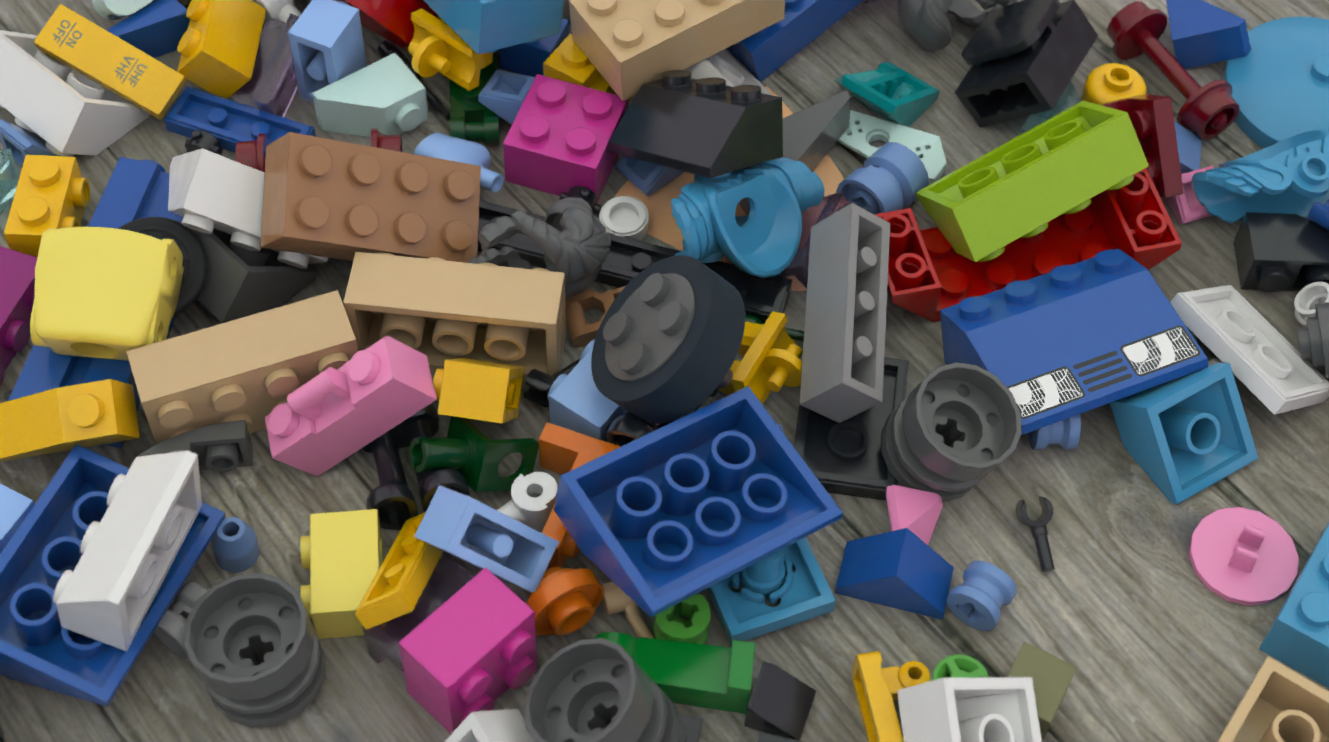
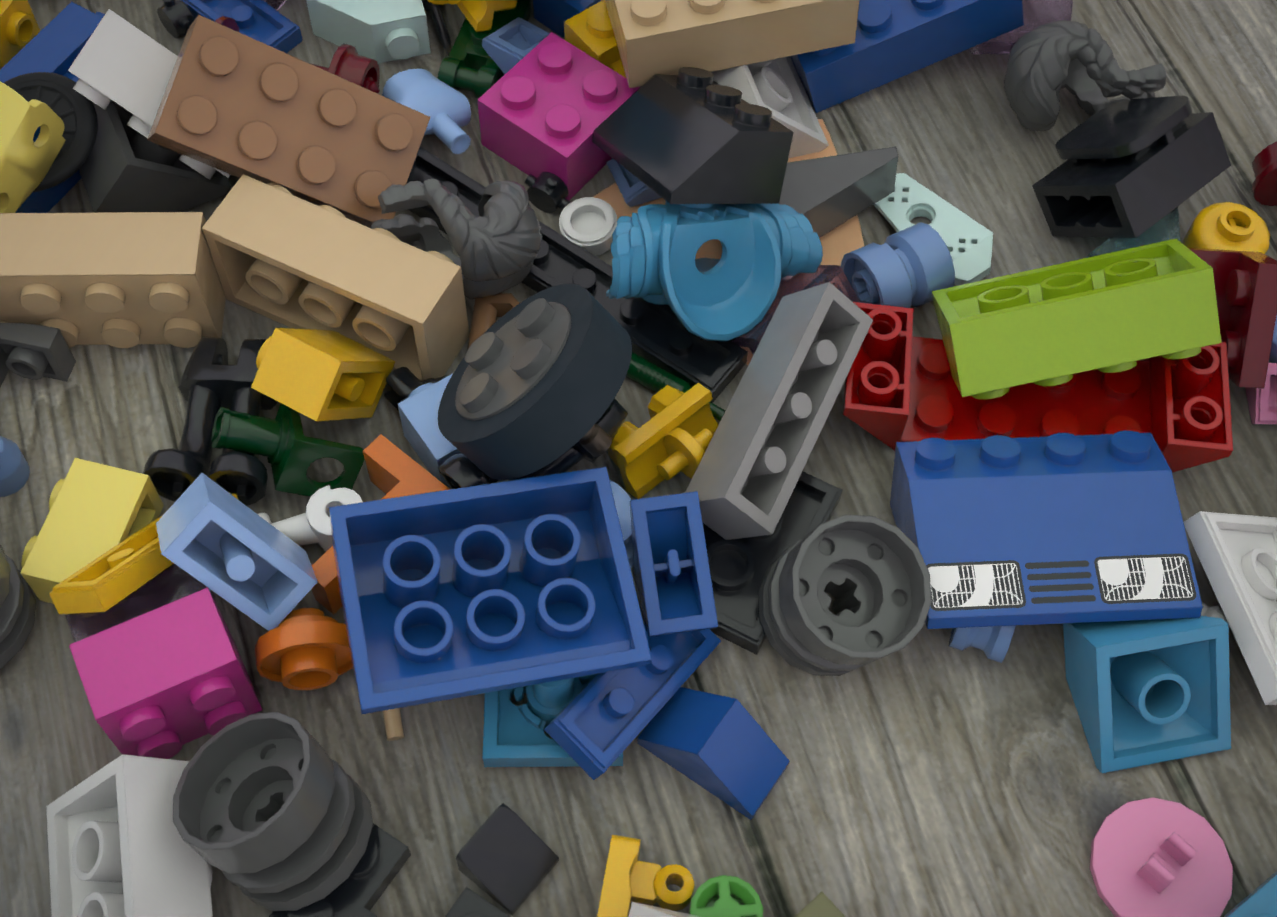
camera: 20 degrees right, 5 degrees up
(350, 406) = (166, 350): bright pink piece -> none
(671, 627) = (439, 737): bright green wheel -> none
(694, 672) = (407, 777): green leg -> none
(820, 559) = (622, 702): none -> blue tile
(821, 441) = (672, 564): none -> blue slope
(890, 93) = (960, 166): teal slope -> none
(913, 510) = (764, 680): bright pink slope -> none
(981, 595) = (803, 810): medium blue wheel -> none
(1039, 531) = (911, 754): black hand -> none

